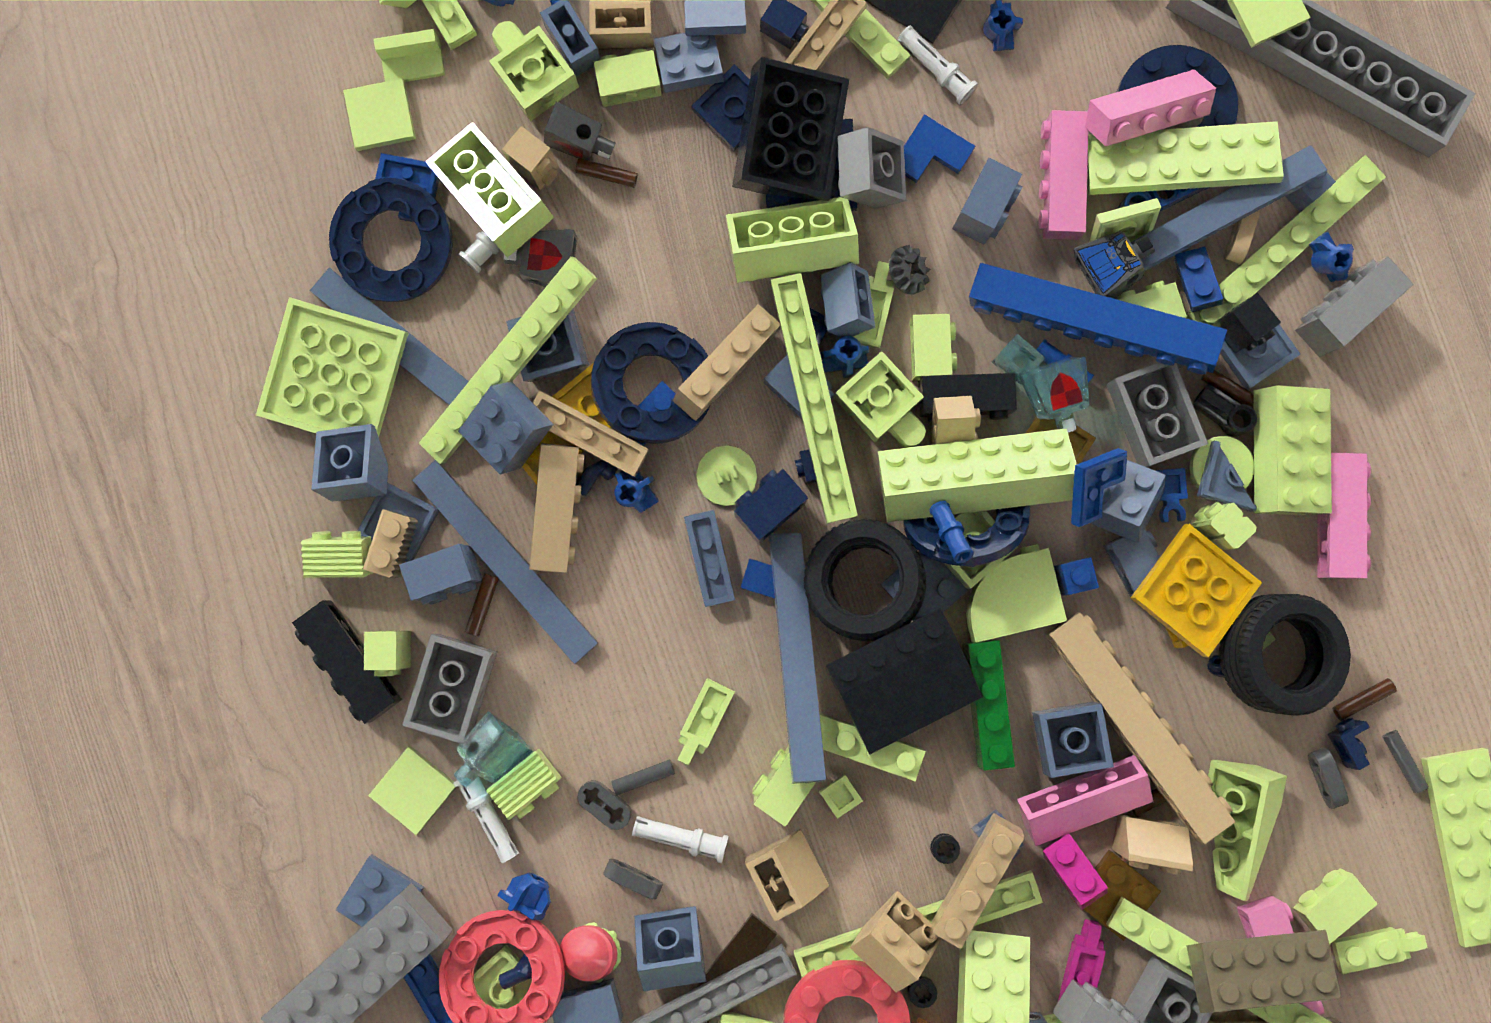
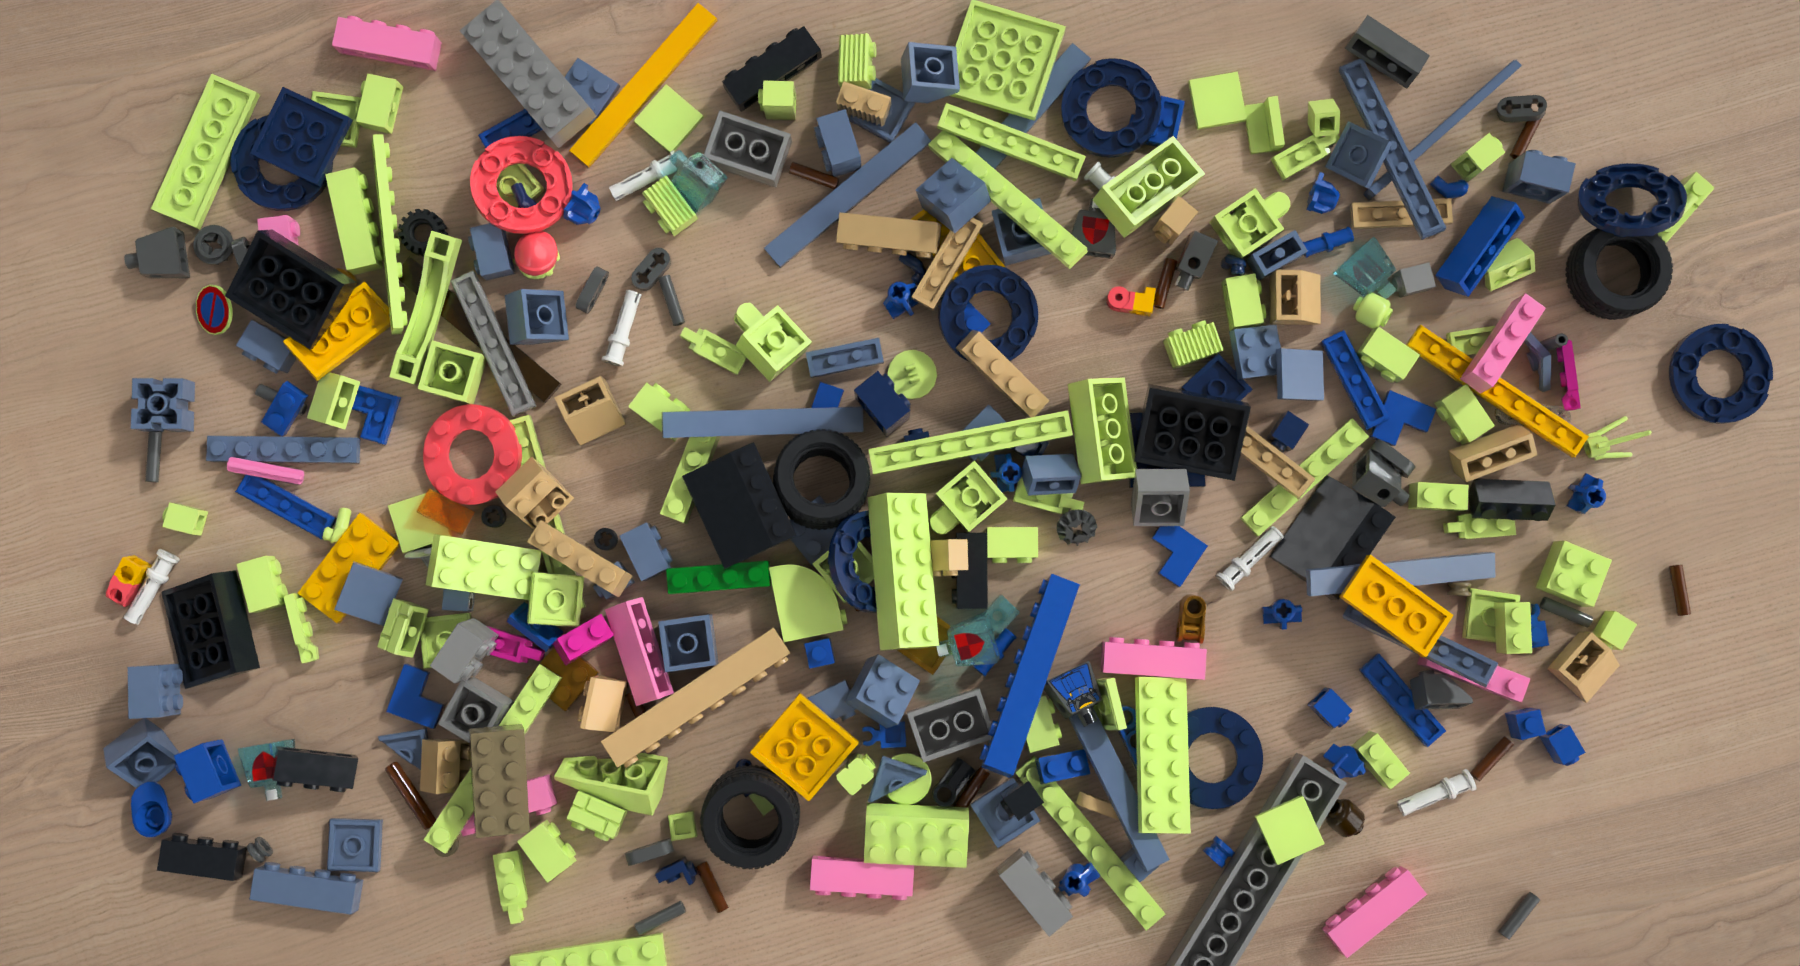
camera: 85 degrees right, 0 degrees up
(370, 824) = (643, 85): none -> yellow tile
(435, 360) = (1011, 142): none -> yellowish green plate
(582, 82) = (1234, 263): none -> dark blue arm
(631, 211) = (1131, 302): none -> leg
(682, 136) = (1193, 344): none -> yellowish green brick
(692, 652) = (769, 340): none -> yellowish green brick
(841, 796) = (650, 456): yellowish green plate -> none
(951, 532) = (855, 544): blue pin -> none
(959, 796) = (646, 551): none -> sand blue brick
(991, 195) = (1130, 591): sand blue brick -> none
(1019, 129) = (1191, 621): none -> pearl gold piece
(1028, 909) = (555, 599): none -> yellowish green tile
(1059, 933) = (541, 635): none -> blue plate
(1090, 481) = (893, 658): blue tile -> none
(1150, 107) = (1205, 729): bright pink brick -> none
(1289, 93) = (1219, 851): none -> blue wheel
(1290, 846) = (596, 815): none -> yellowish green brick
(1292, 738) = (682, 825): none -> yellowish green tile

